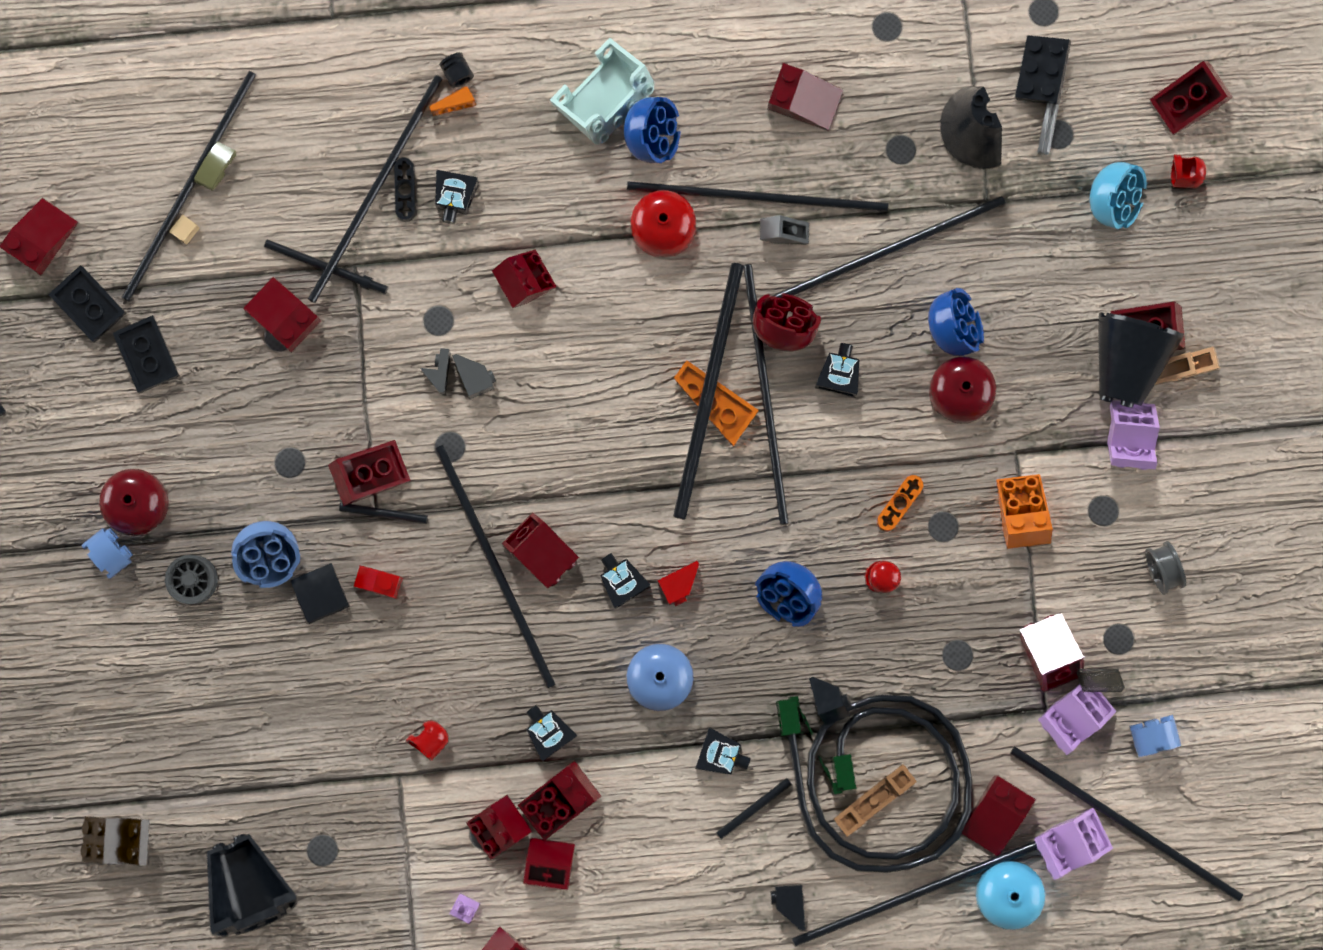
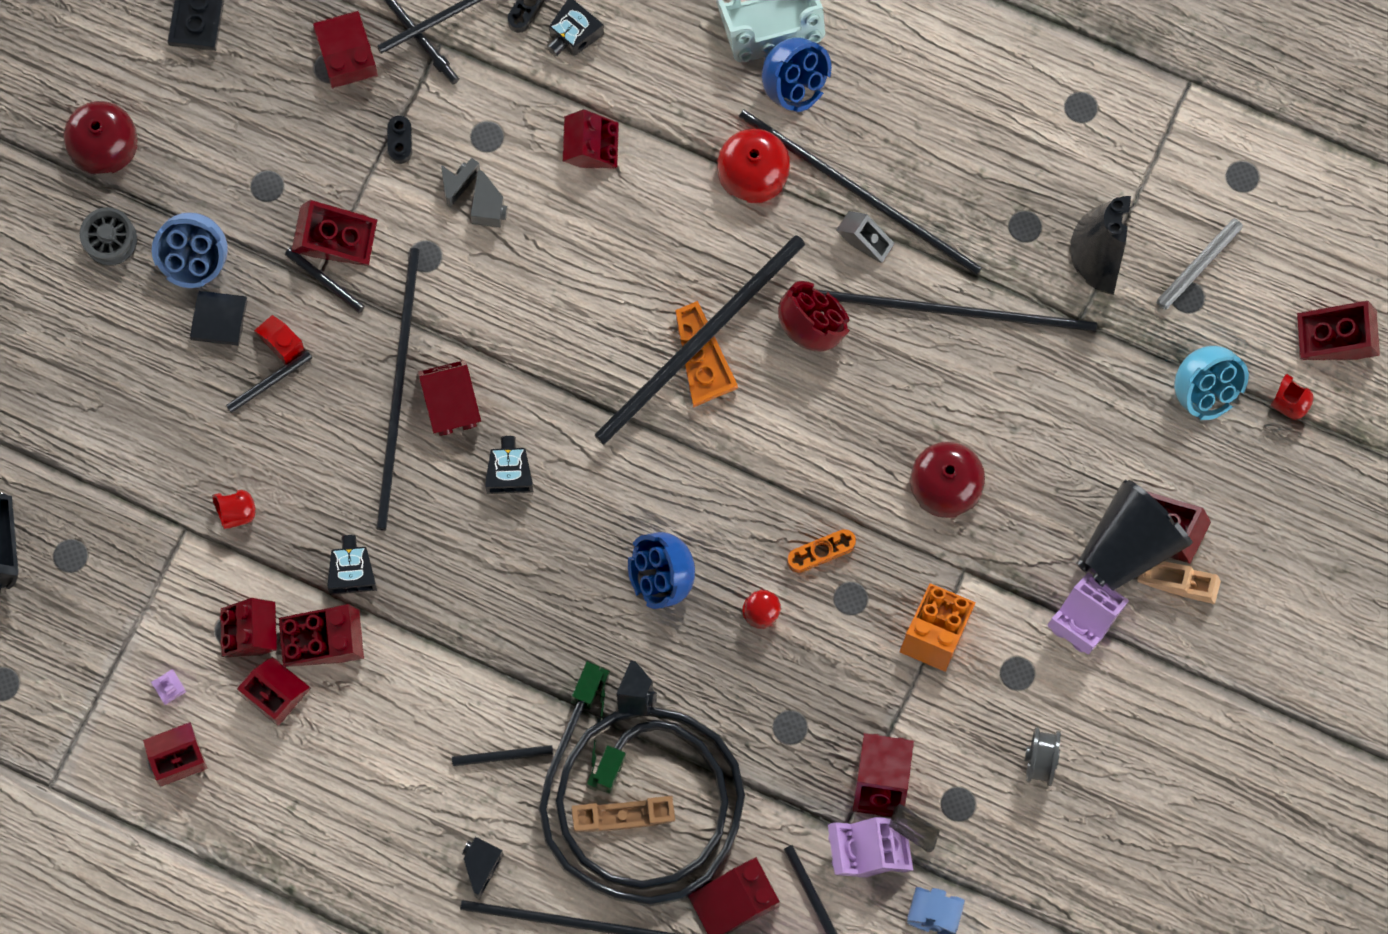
camera: 30 degrees right, 10 degrees down
(107, 552) = (46, 166): medium blue brick -> none
(371, 363) = (399, 137): none -> black plate
(391, 620) = (269, 381): none -> black bar
(659, 694) = (484, 593): medium blue cylinder -> none
(679, 584) = (562, 502): red slope -> none
(721, 754) = (501, 684): black torso -> none
(766, 399) = (748, 390): black piece -> none
(804, 97) = (960, 125): slope -> none
(840, 372) = (837, 395): black torso -> none
(948, 323) = (973, 402): blue cylinder -> none
(1043, 69) = (1207, 227): black plate -> none

